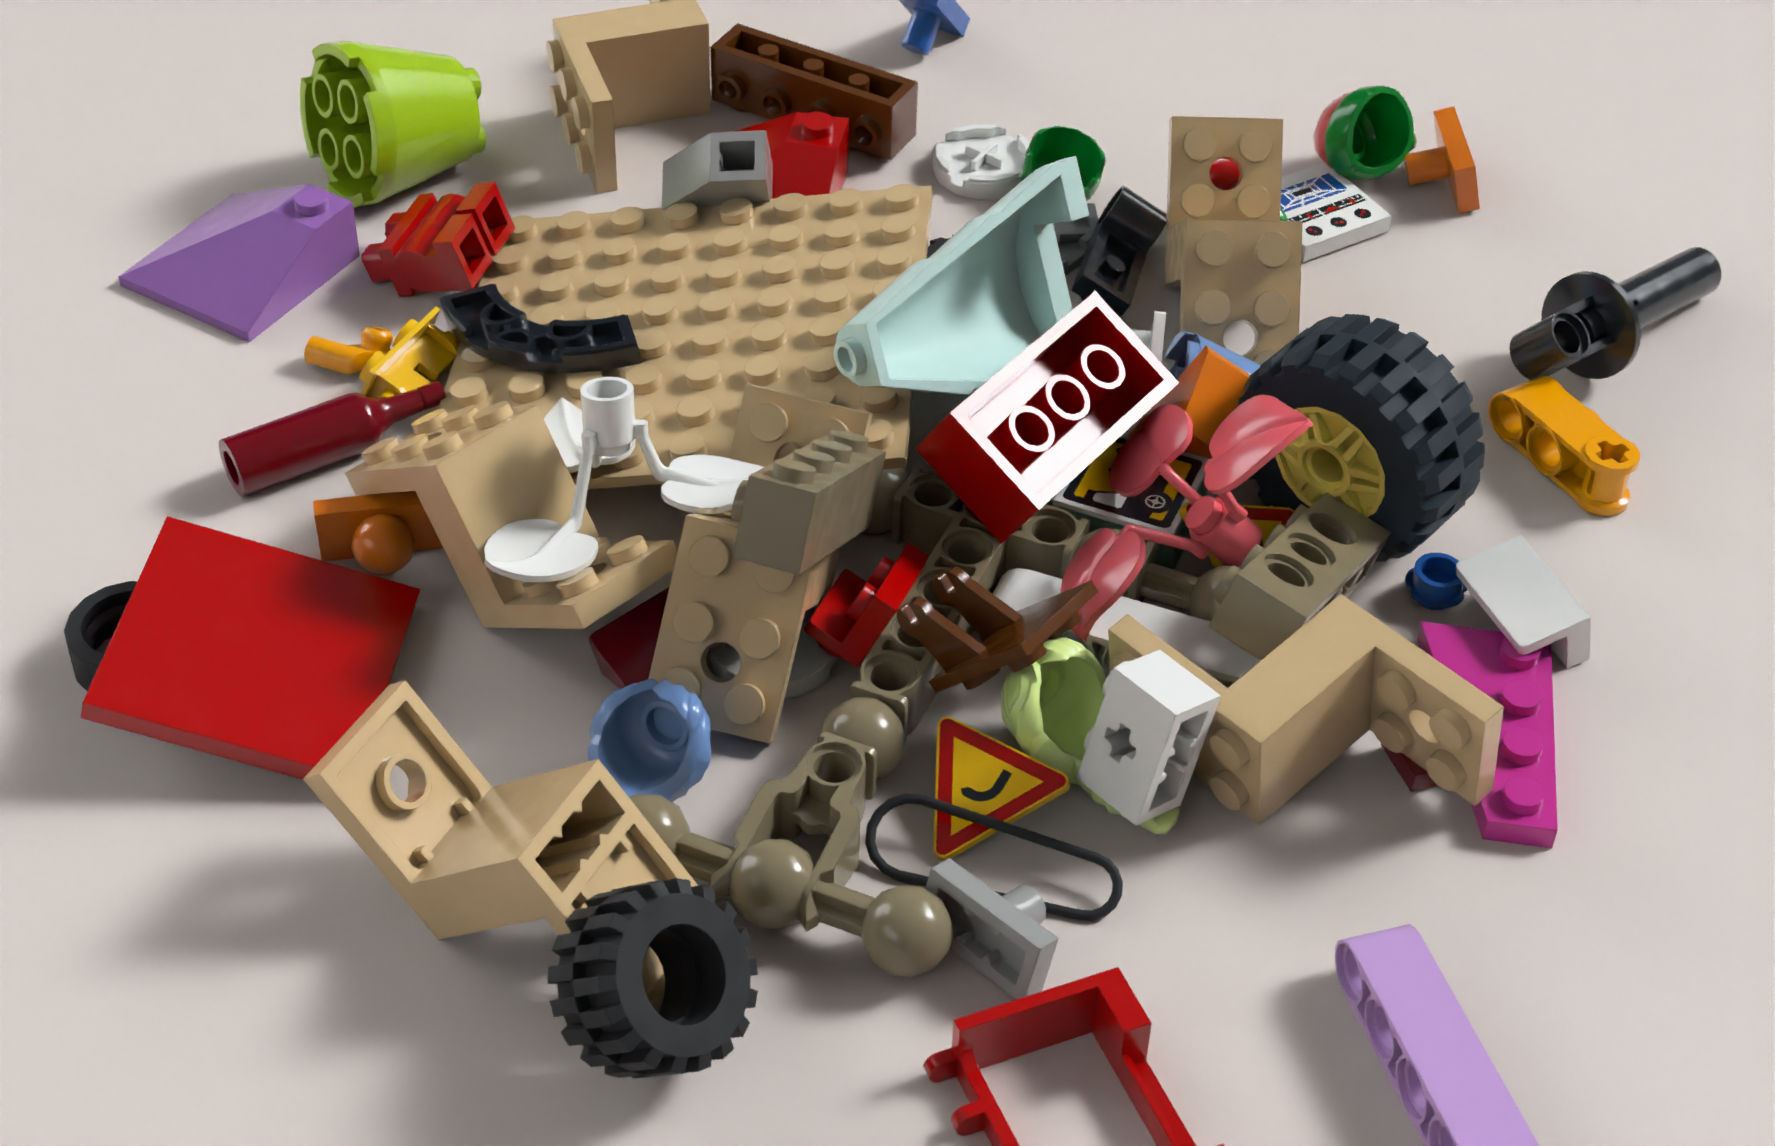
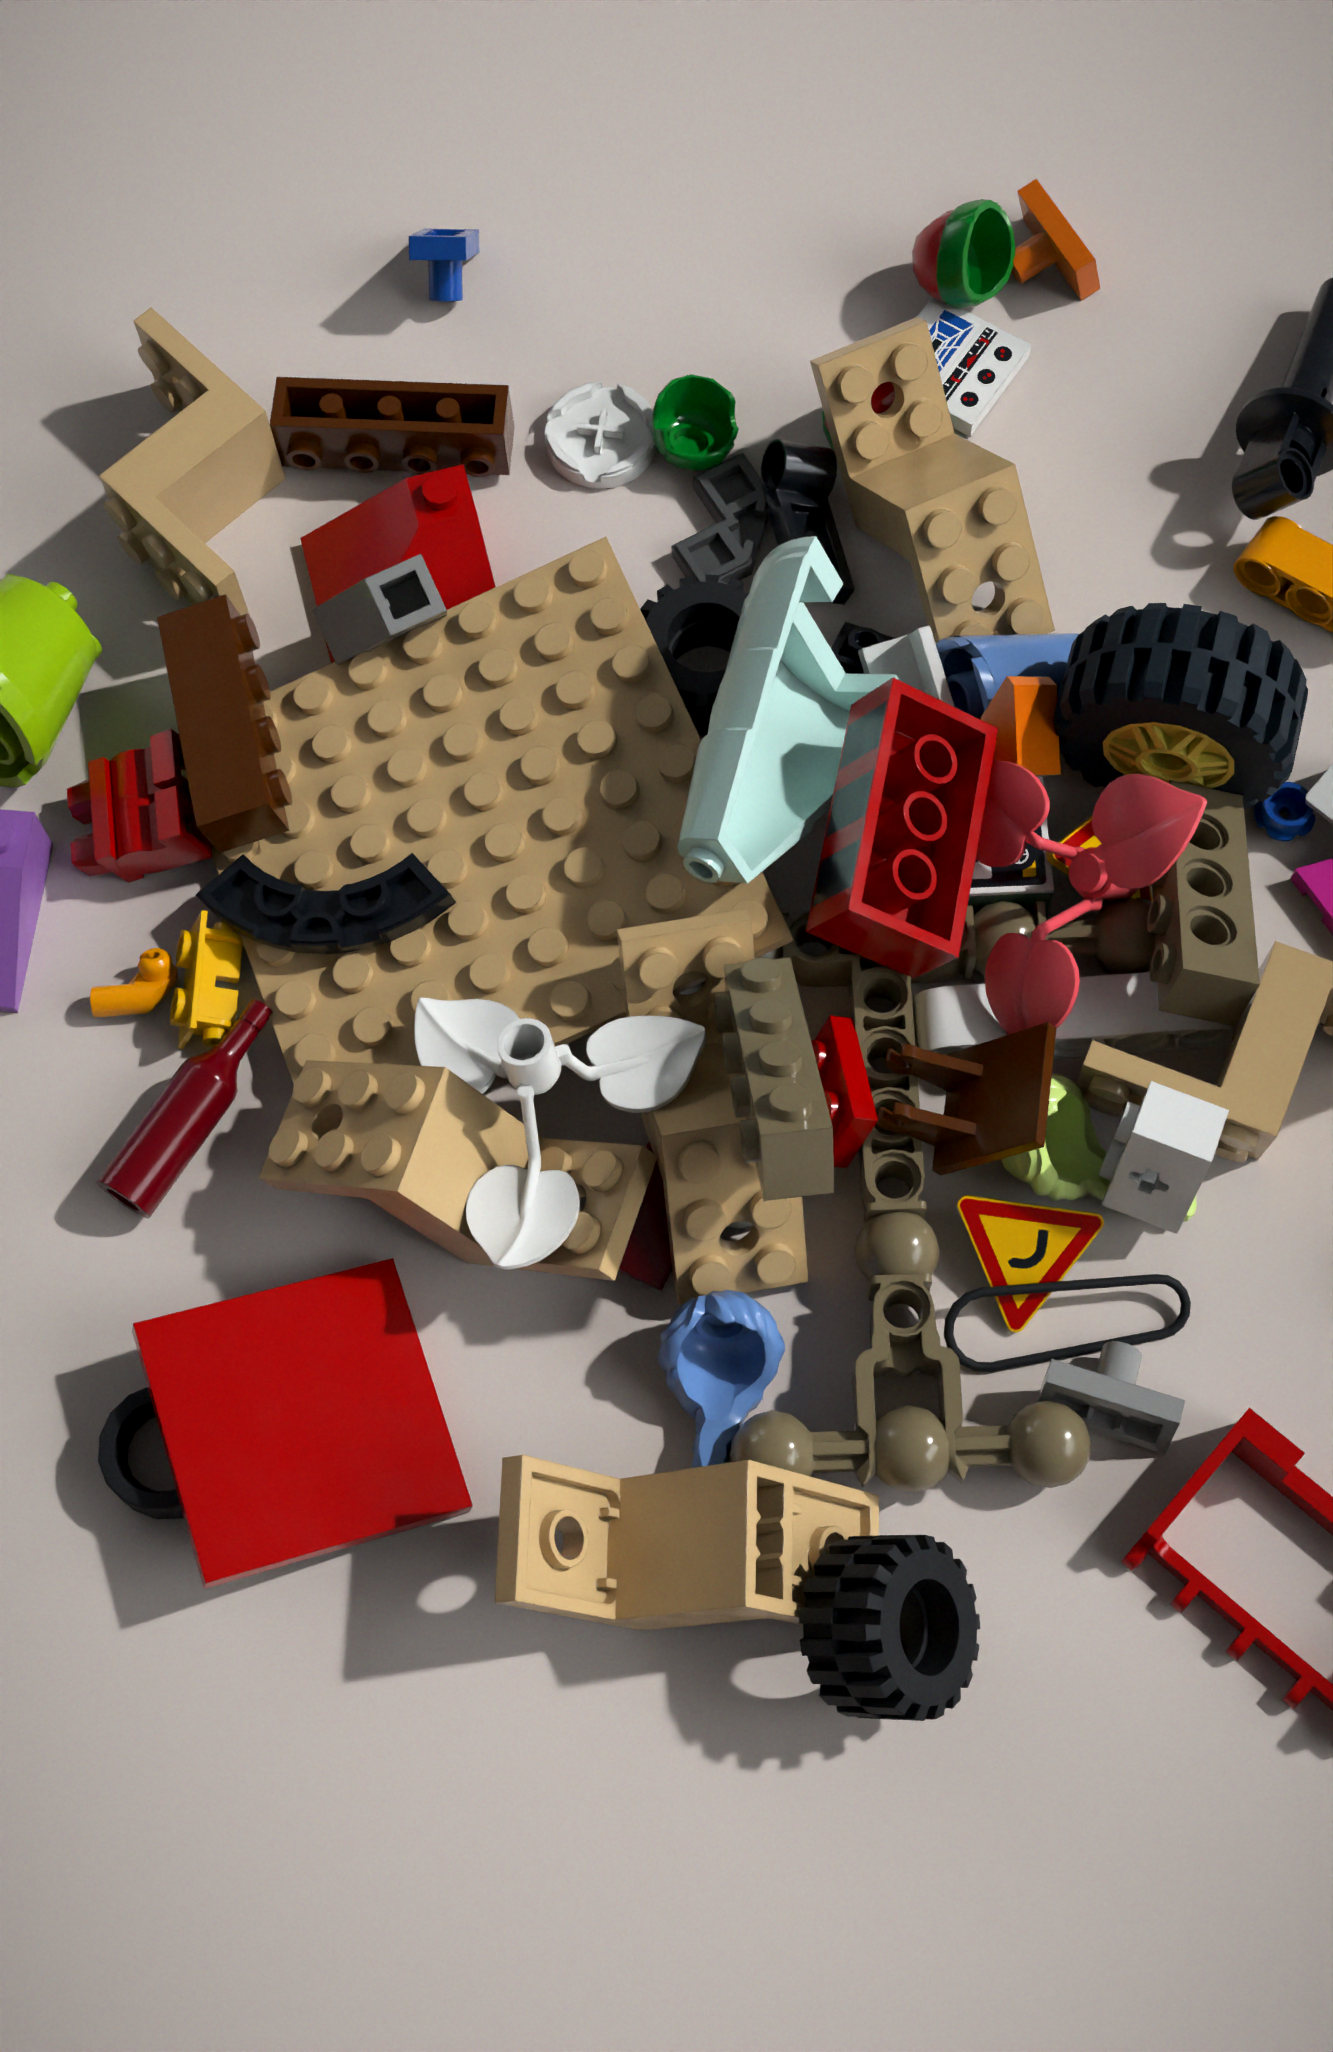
camera: 20 degrees left, 25 degrees up
(374, 530) = (322, 1223): orange tile -> none
(538, 199) = (224, 724): none -> reddish brown brick

